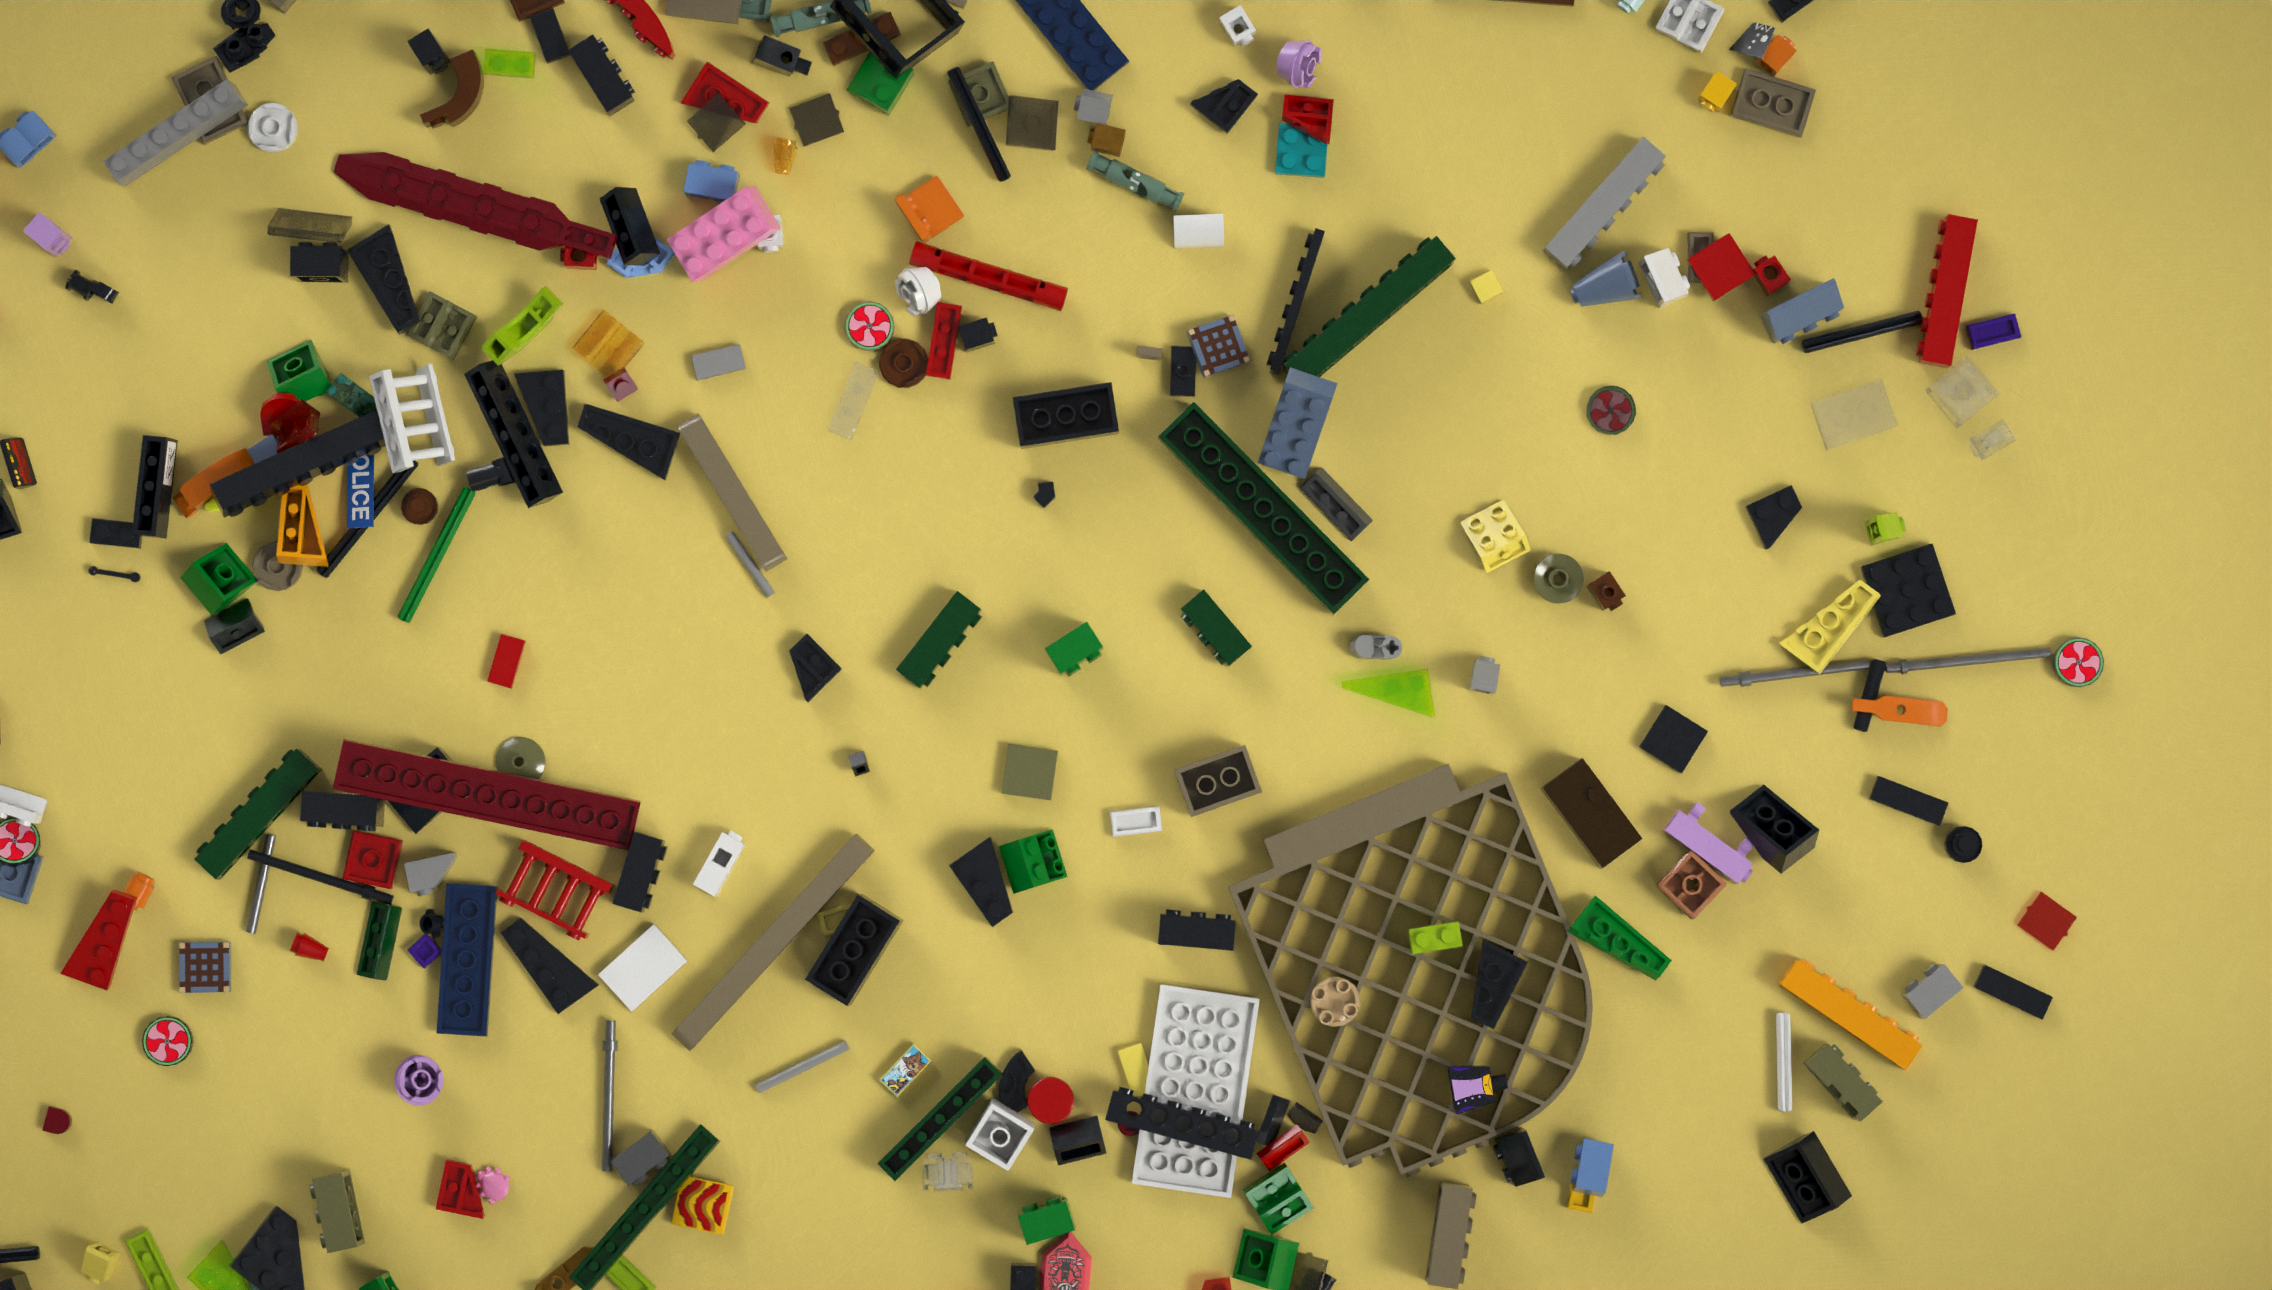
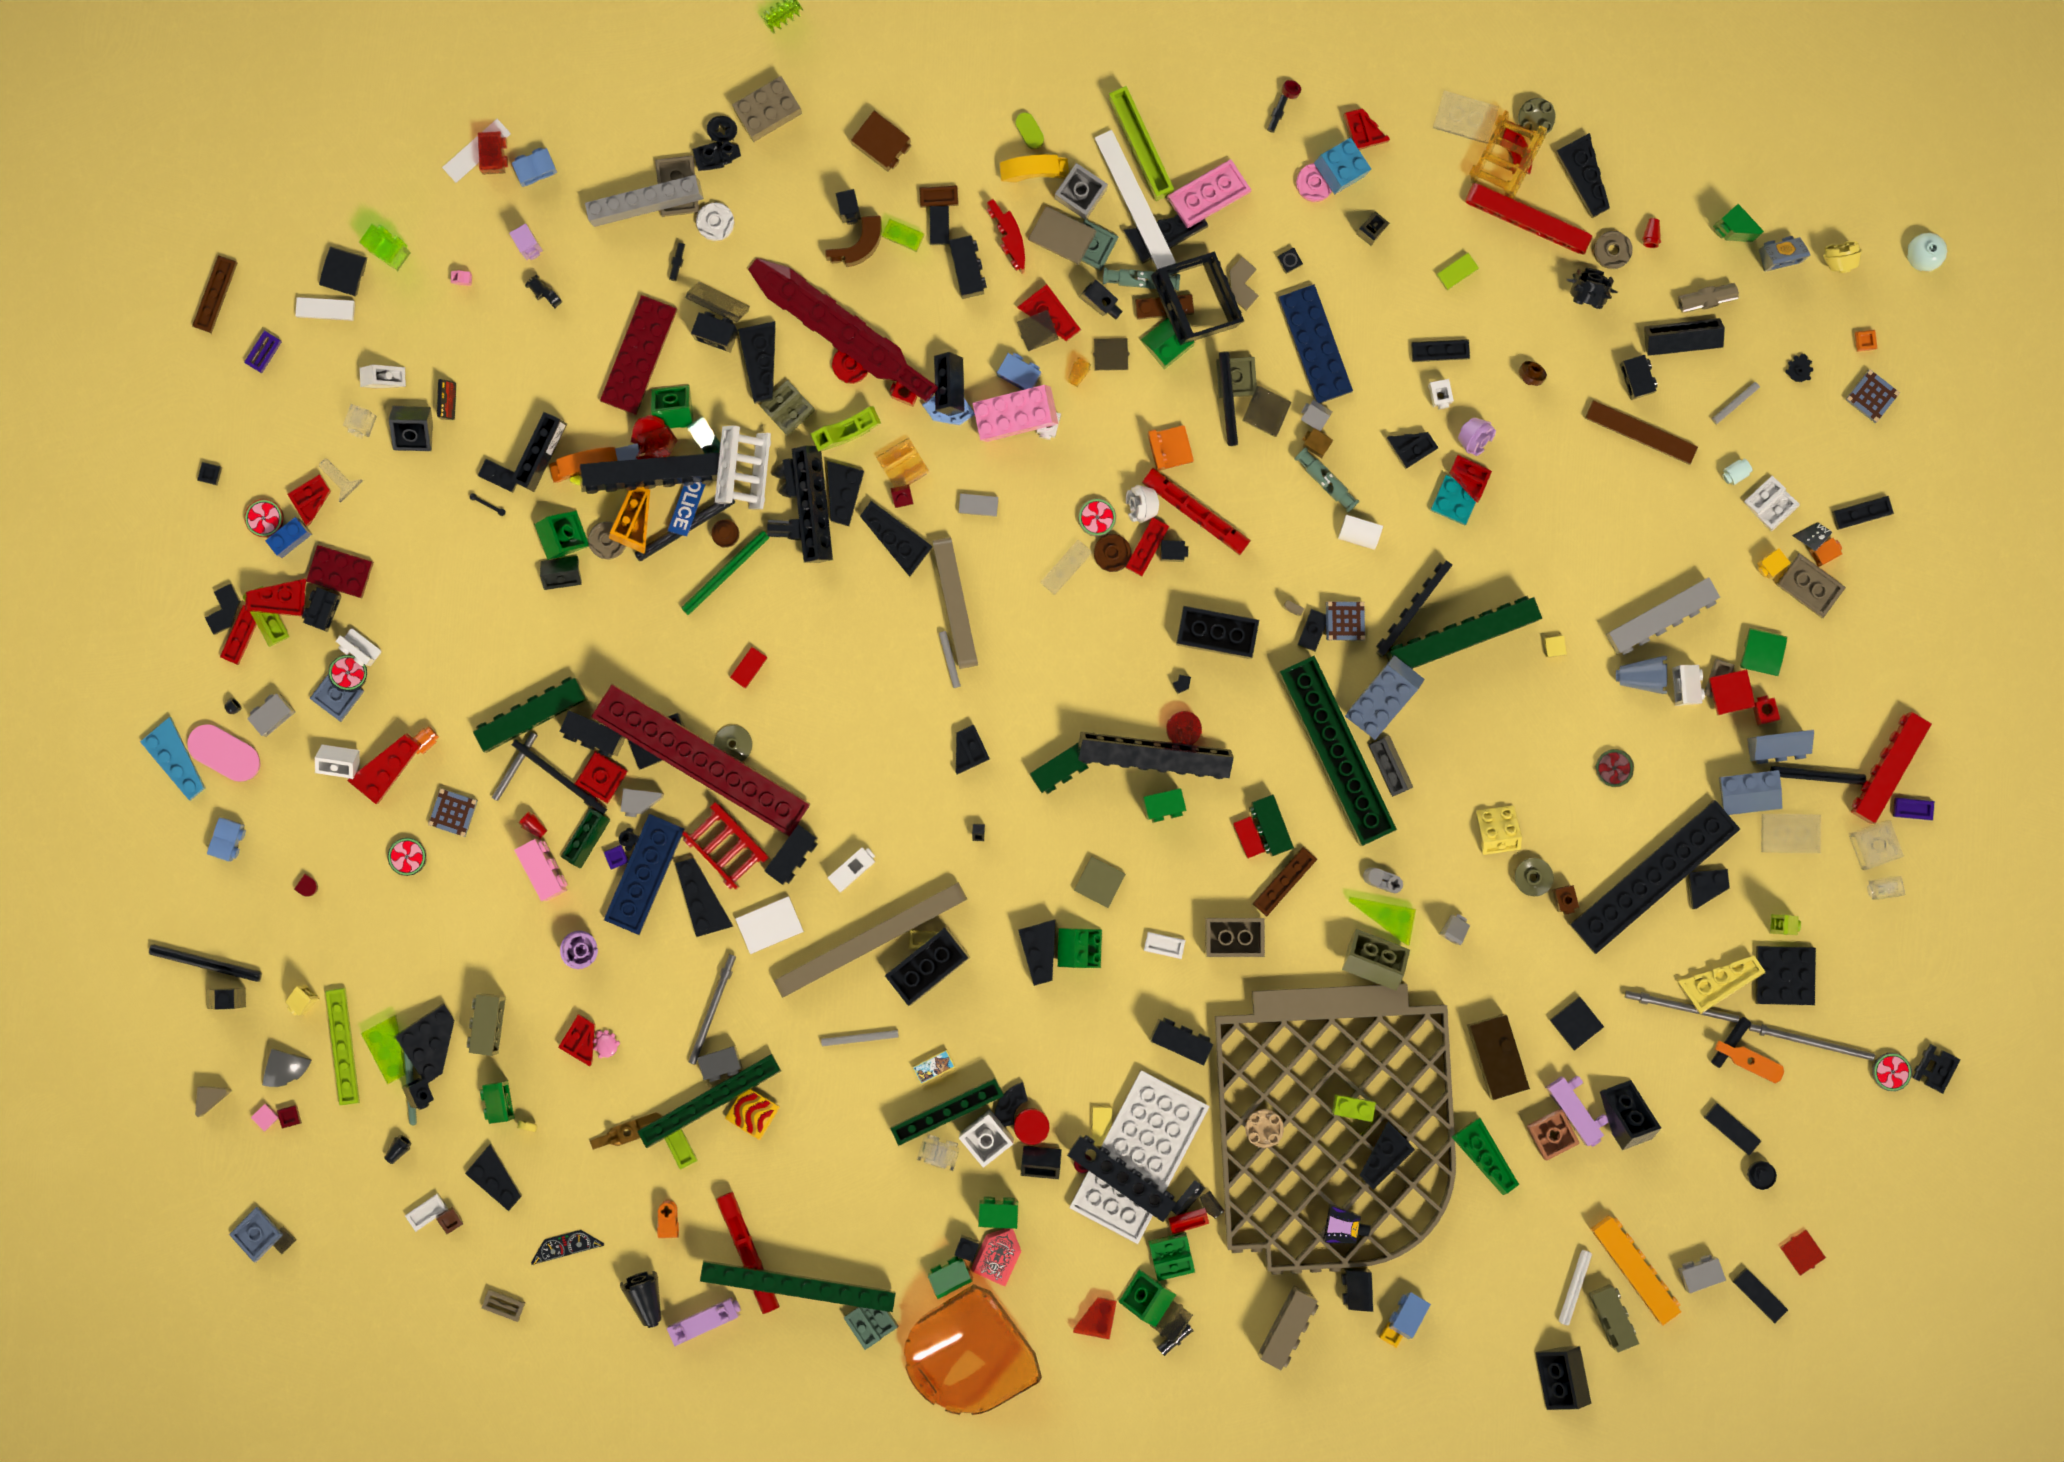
camera: 15 degrees right, 0 degrees up
(40, 954) = (337, 761): none -> white brick
(235, 324) = (638, 355): none -> dark red plate
(242, 193) = (677, 262): none -> black bar
(338, 998) = (541, 869): none -> bright pink brick
(467, 404) = (786, 471): none -> black tile
(499, 252) = (847, 369): none -> red tile
(1041, 592) = (1154, 755): none -> black brick
(1066, 548) = (1184, 728): none -> clear red head
(1193, 652) = (1249, 837): none -> red tile
(1256, 691) = (1284, 881): none -> reddish brown tile
(1399, 747) = (1376, 959): none -> olive brick
(1706, 526) = (1655, 877): none -> black plate
(1743, 204) = (1764, 652): none -> green slope
(1787, 381) = (1751, 792): none -> sand blue slope
(2138, 639) = (1941, 1072): none -> black plate

